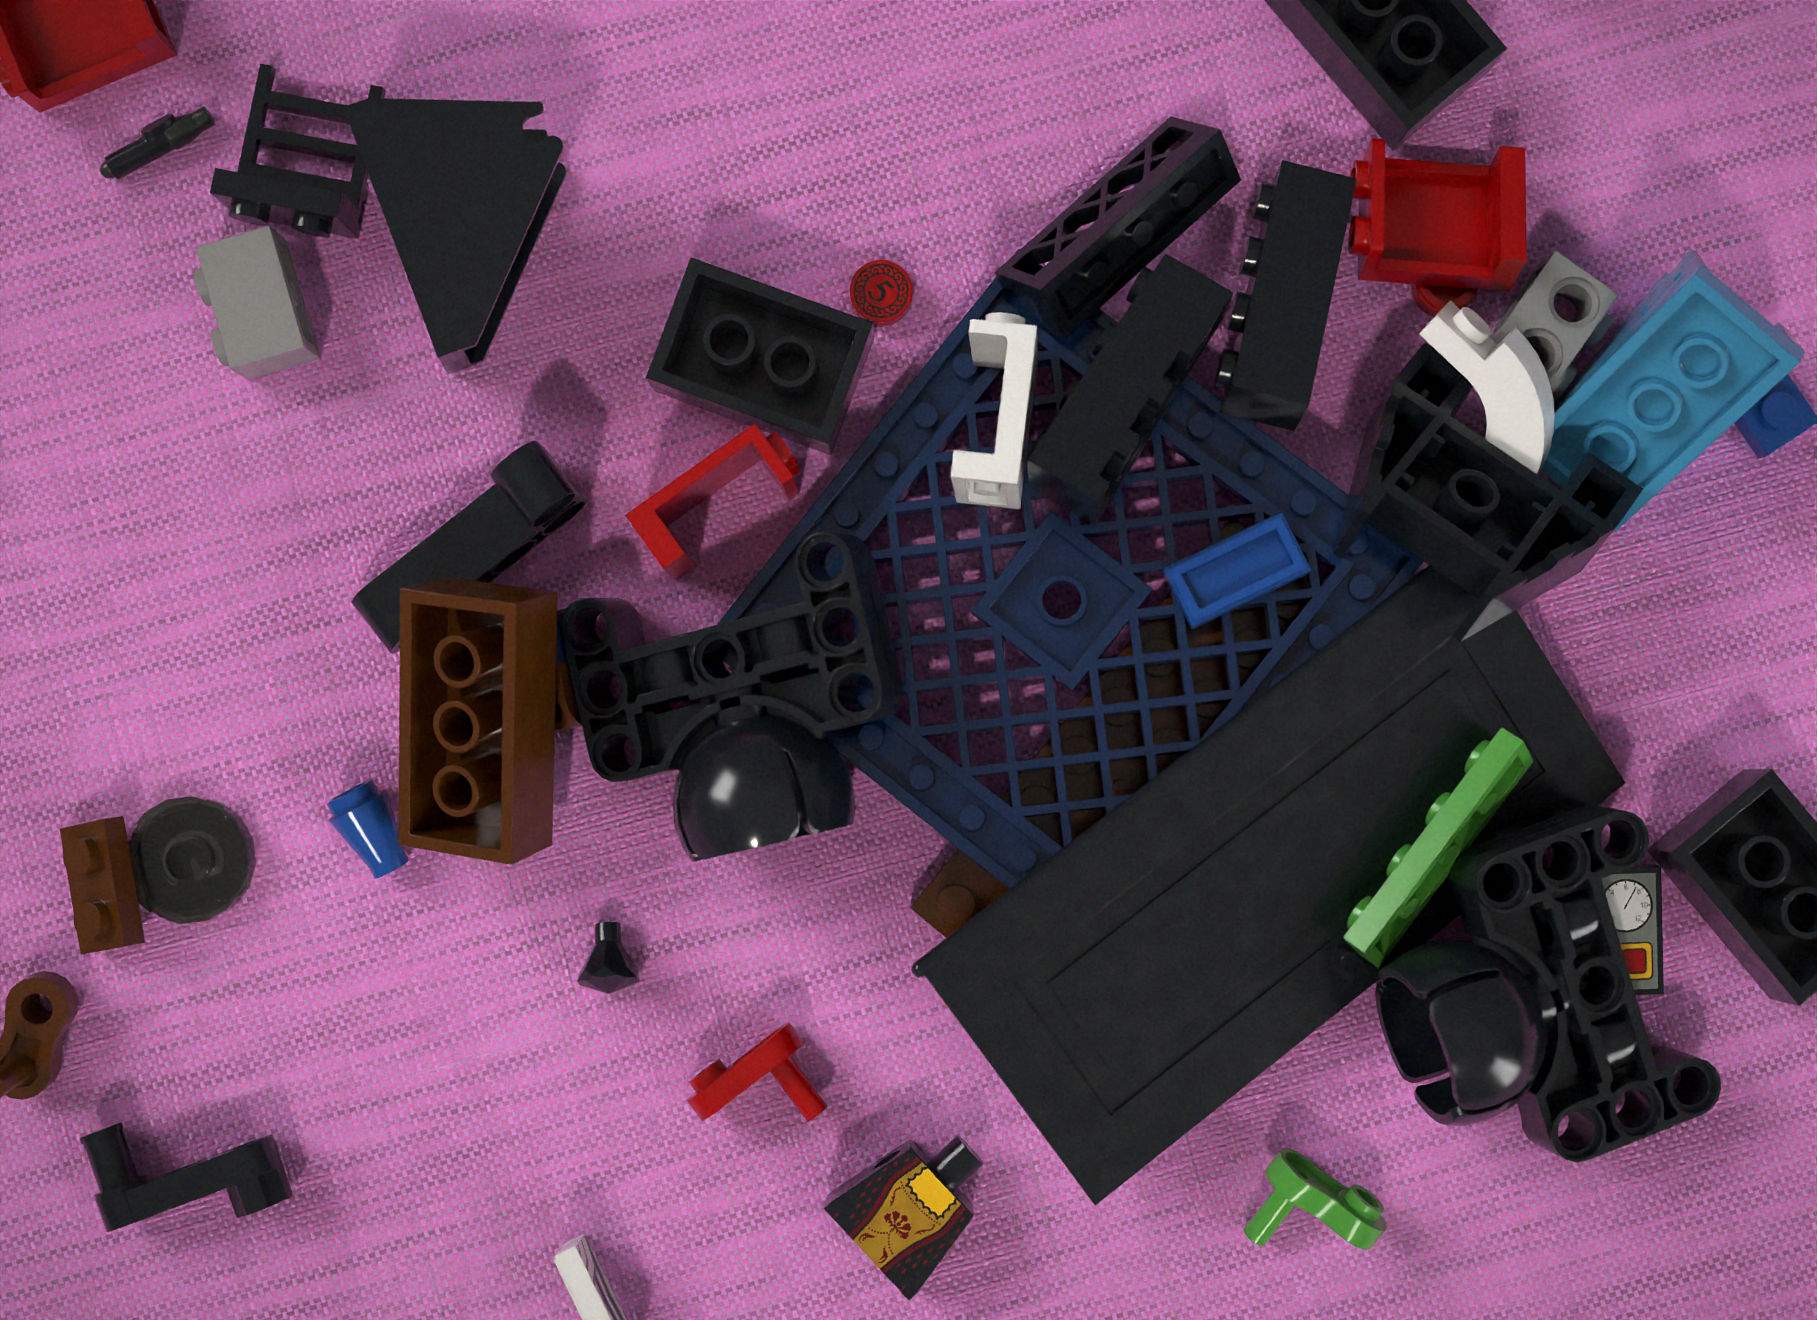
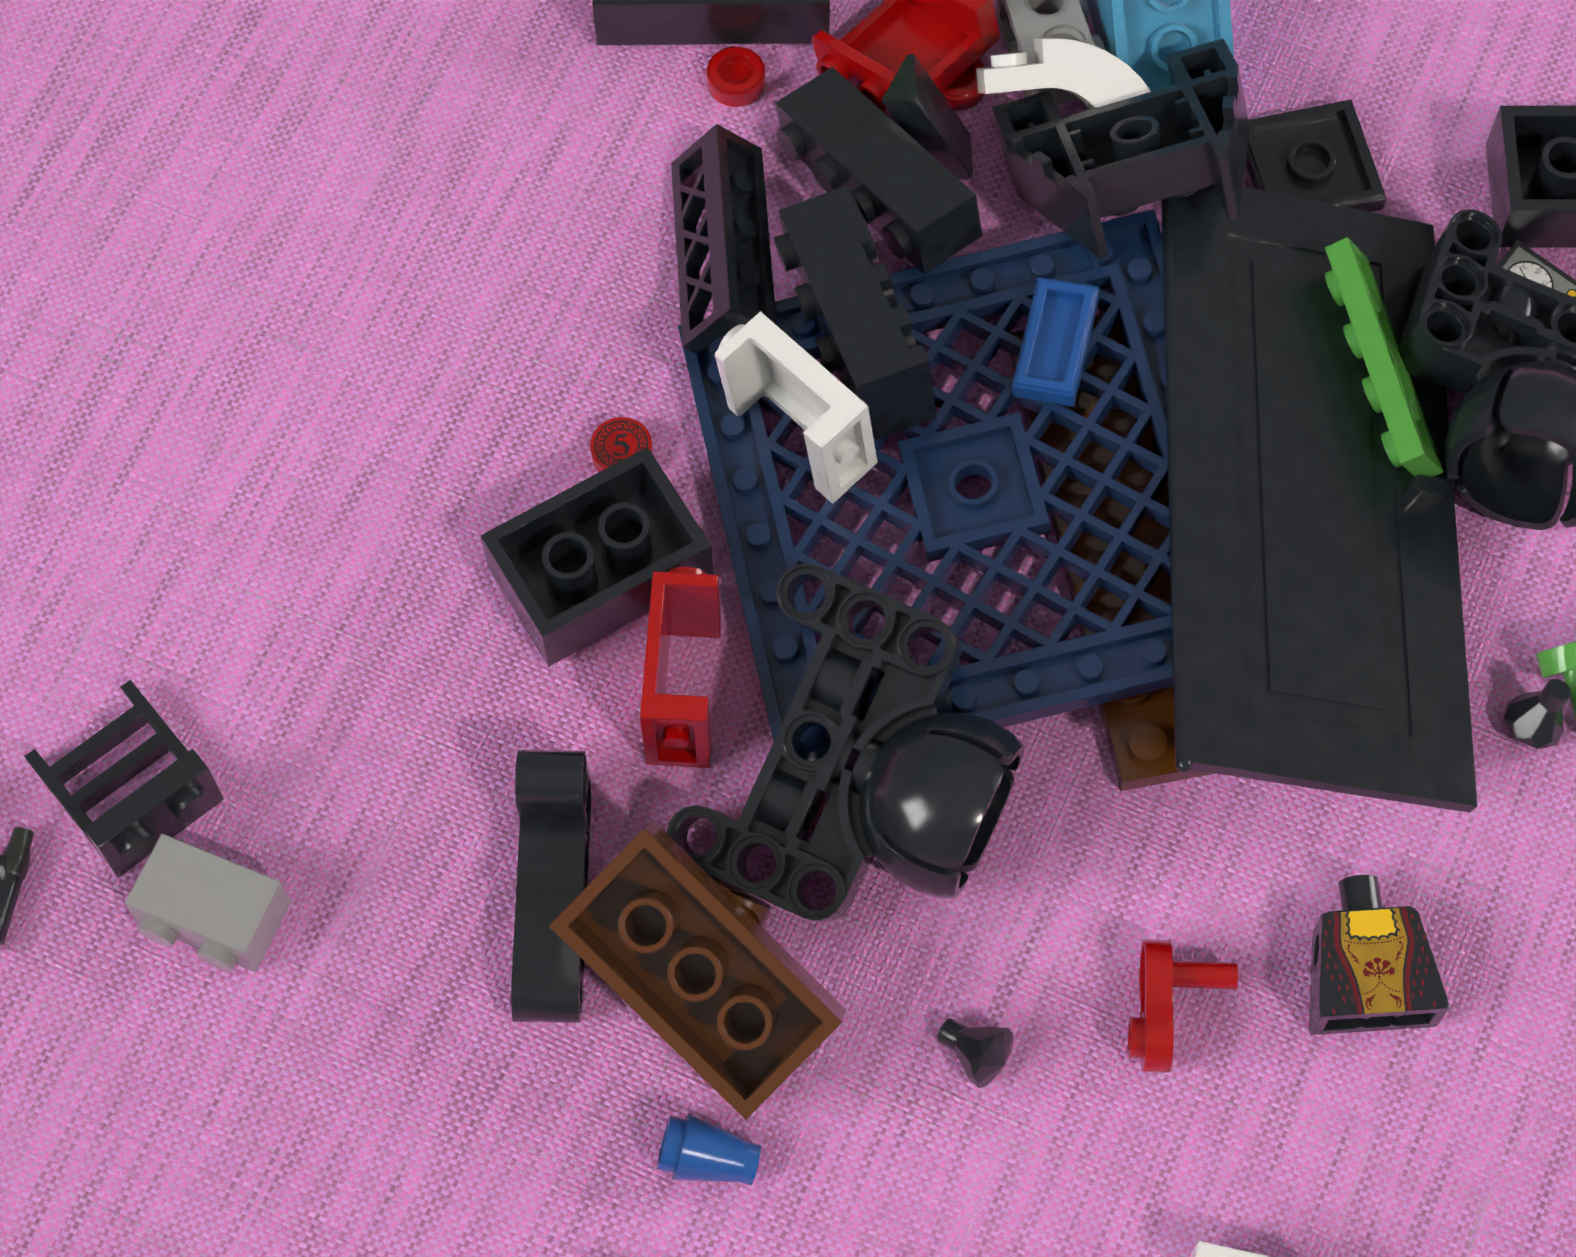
camera: 50 degrees left, 20 degrees down
(462, 205) = (282, 680): black ladder -> none
(1227, 1186) = (1538, 715): none -> black rock
(1297, 100) = (736, 76): none -> red tile
(1372, 300) = (929, 117): none -> black slope
(1607, 638) = (1315, 157): none -> black tile

